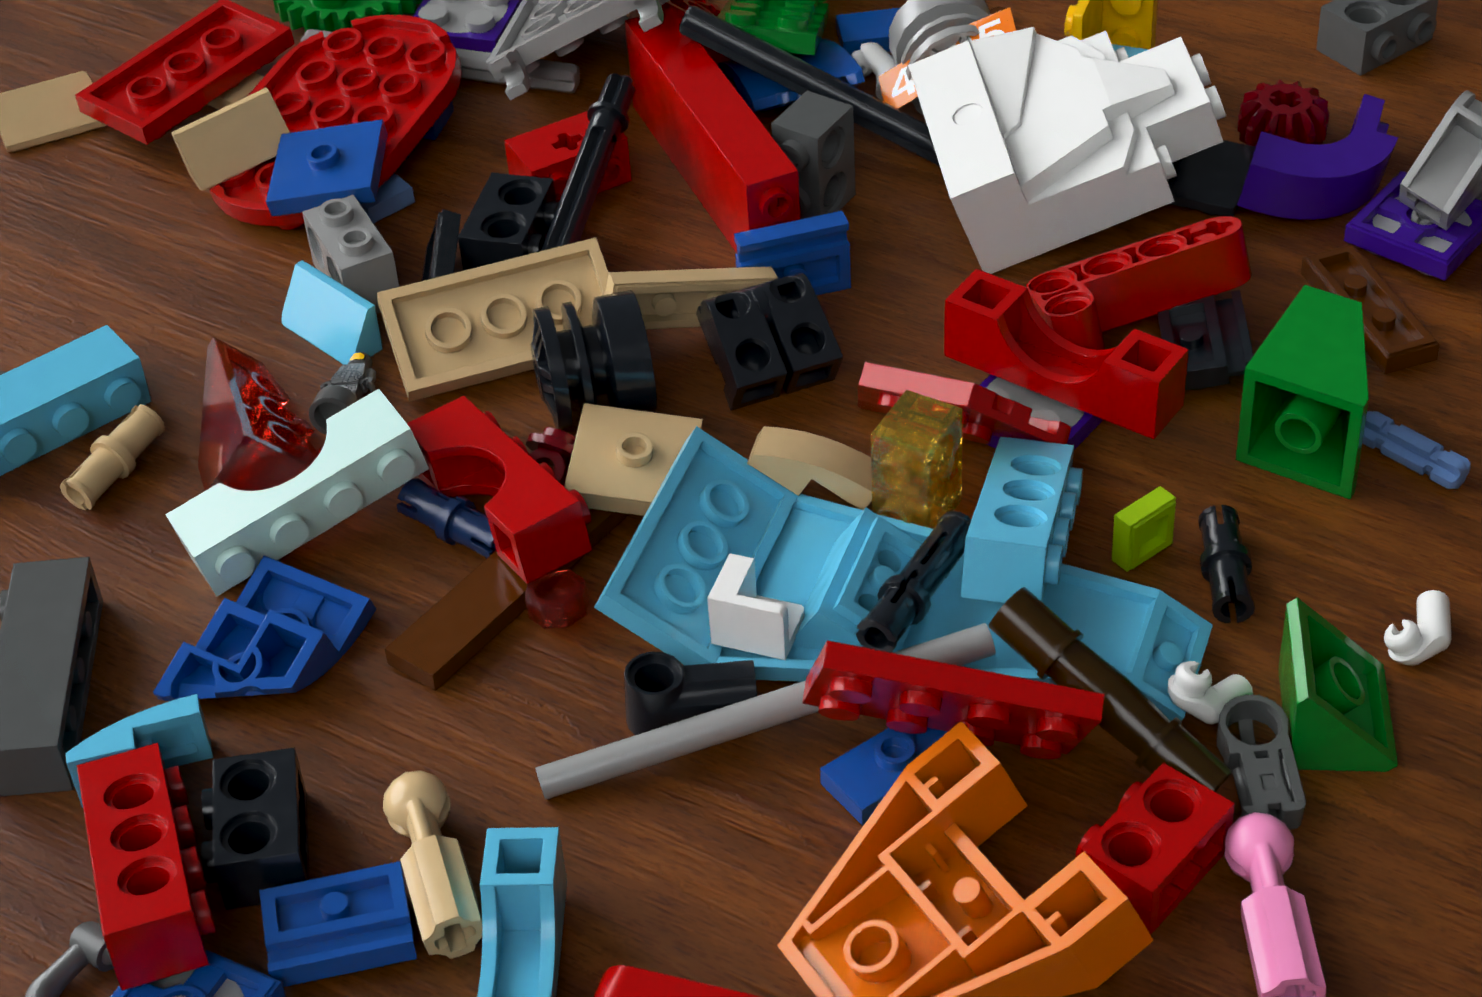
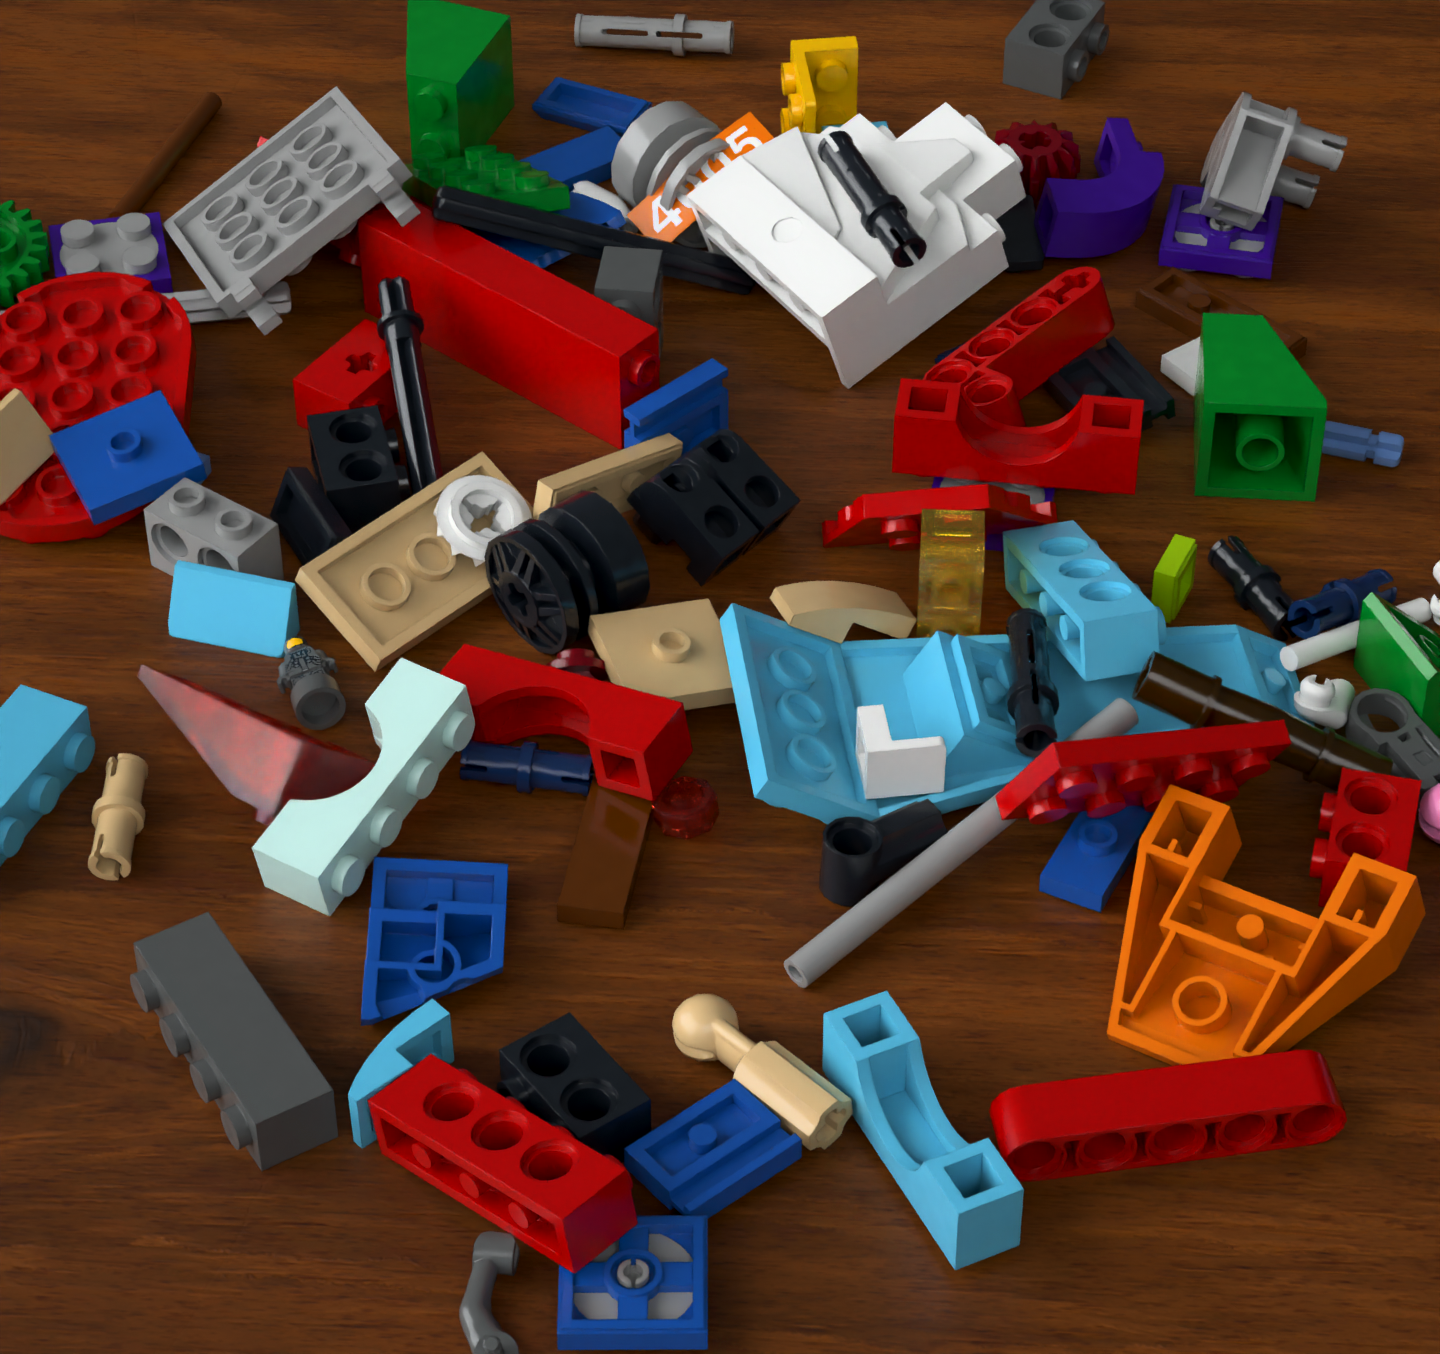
camera: 30 degrees left, 0 degrees up
(564, 275) = (470, 499): none -> white gear
(1050, 113) = (881, 213): none -> black pin
(1269, 602) = (1338, 603): none -> dark blue pin
(1269, 637) = (1340, 639): none -> white bar

